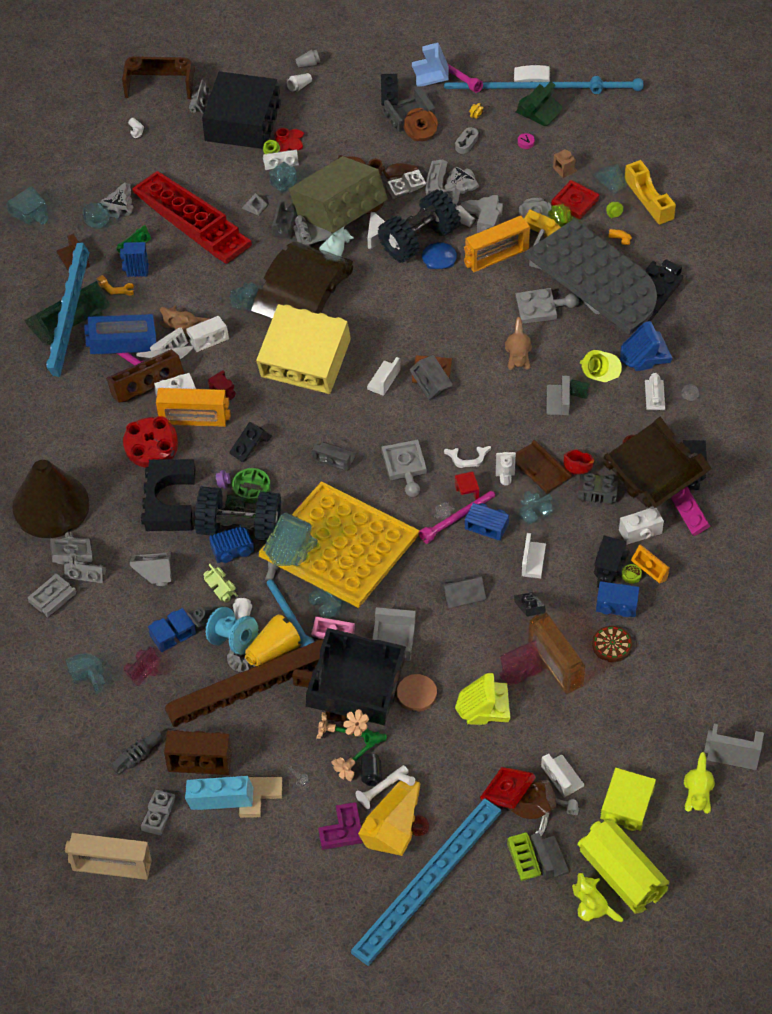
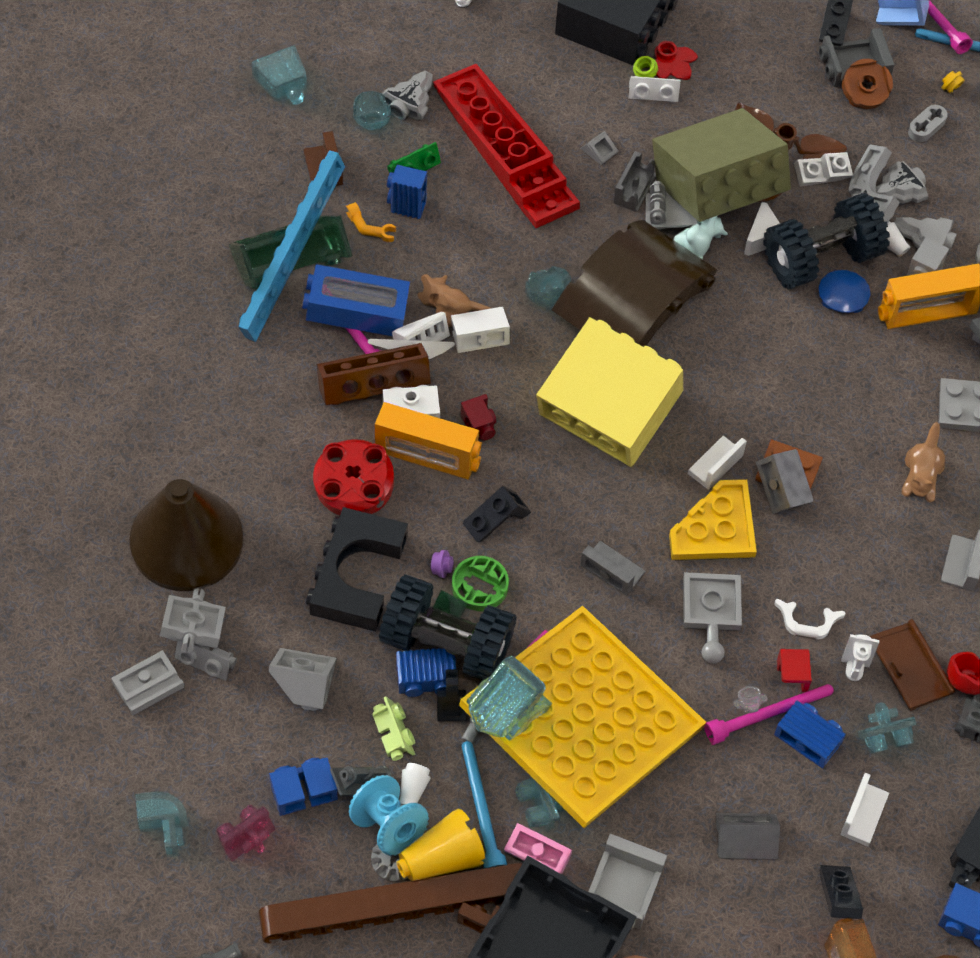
camera: 10 degrees right, 5 degrees up
(251, 557) = (449, 699): none -> black plate
(283, 177) = (650, 116): clear light blue brick -> none
(394, 414) = (717, 525): none -> yellow plate

